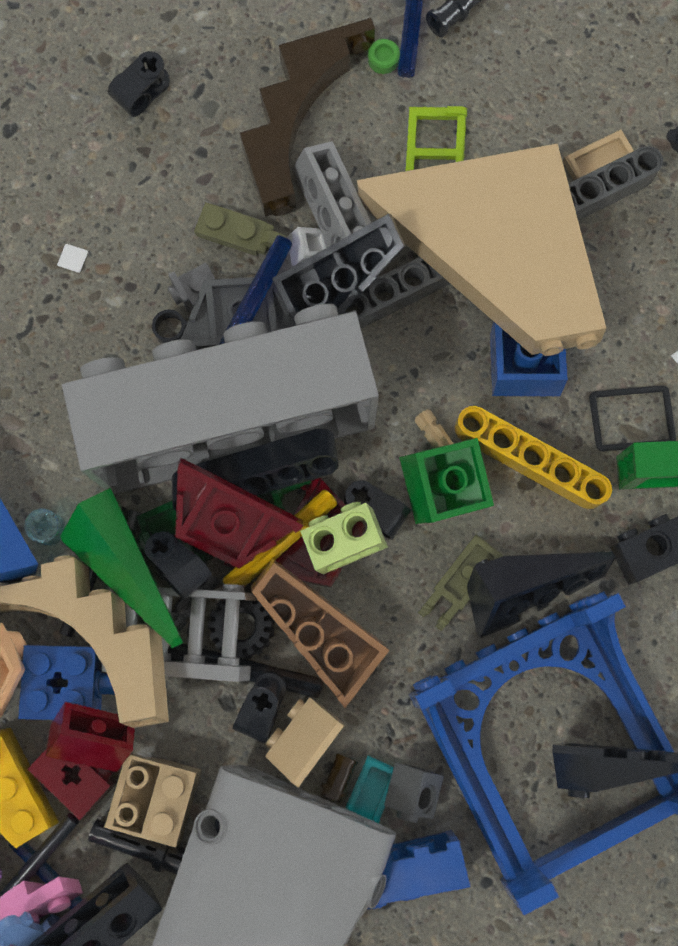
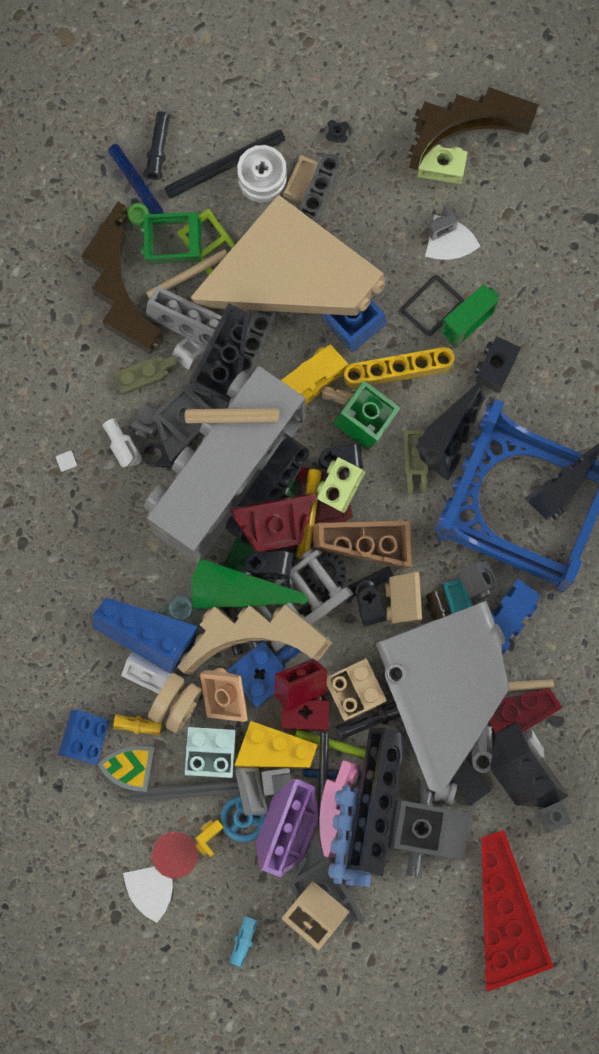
camera: 40 degrees left, 0 degrees up
(78, 840) = (333, 744): none -> lime bar
(140, 86) = (20, 341): black piece -> none
(143, 288) = (122, 445): none -> white arm
(261, 282) = (186, 396): clear blue axle -> none
(269, 344) = (231, 415): none -> tan axle
(383, 160) = (187, 274): none -> tan bar
(423, 122) = (195, 237): none -> green window
(423, 385) = (316, 373): none -> yellow wedge
(527, 74) = (220, 165): none -> black axle
(560, 111) = (262, 173): none -> white wheel

